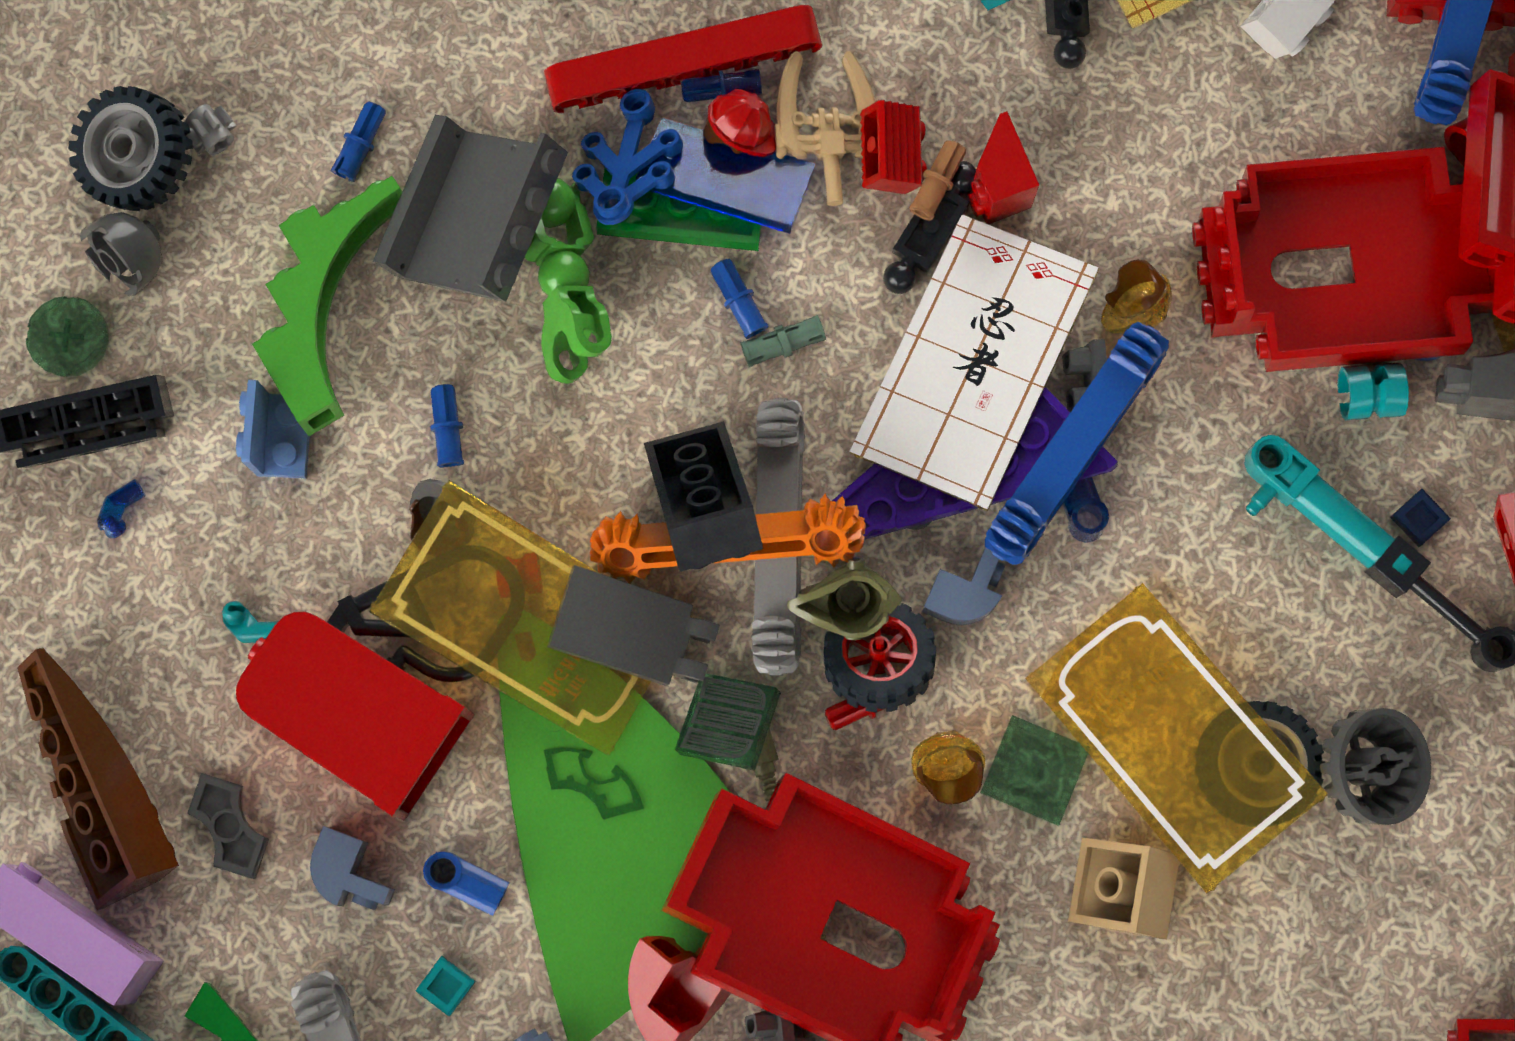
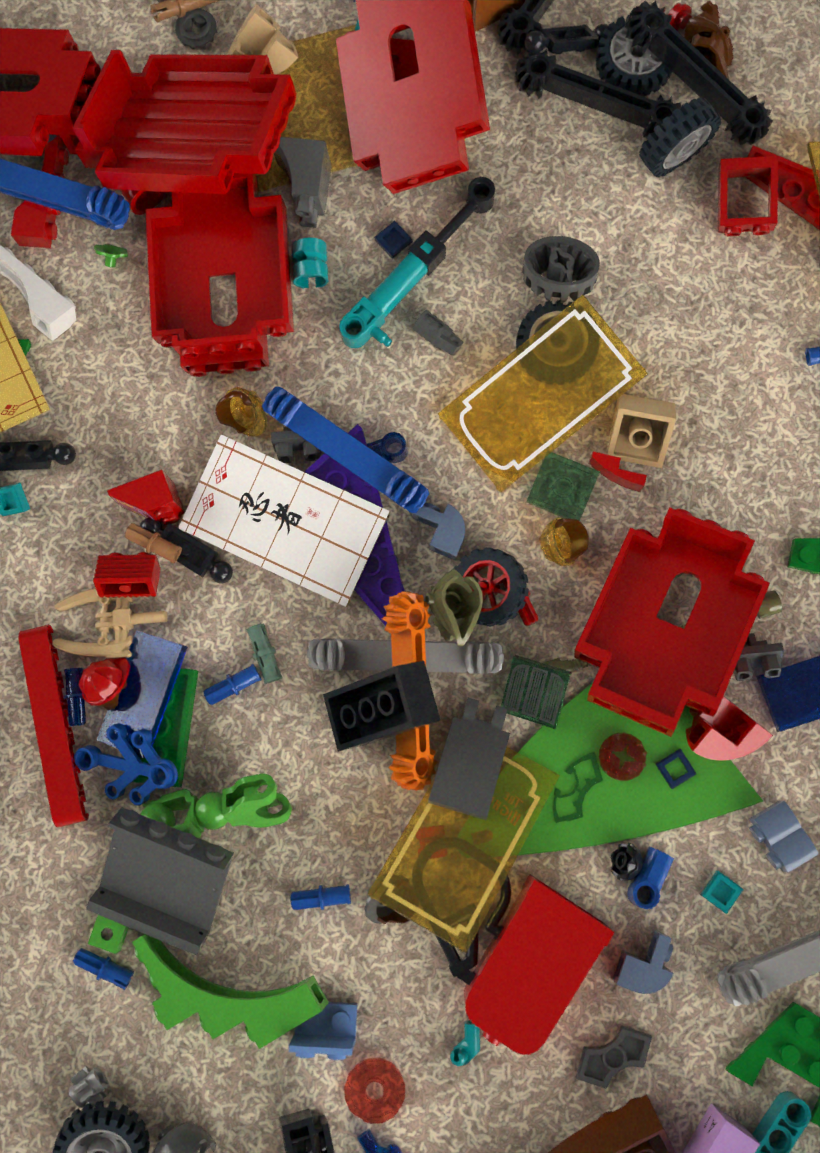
camera: 85 degrees left, 0 degrees up
(211, 519) = (380, 1071): none -> clear red tile
(391, 155) = (115, 943): none -> bright green piece
(488, 849) = (626, 862): none -> black plate
(639, 933) = (661, 766): none -> dark blue tile
(644, 866) = (610, 762): none -> clear red gear
(1064, 839) = (609, 468): none -> red slope
(1269, 584) = (437, 333): none -> dark grey hinge
(1380, 102) = (111, 253): none -> bright green plant

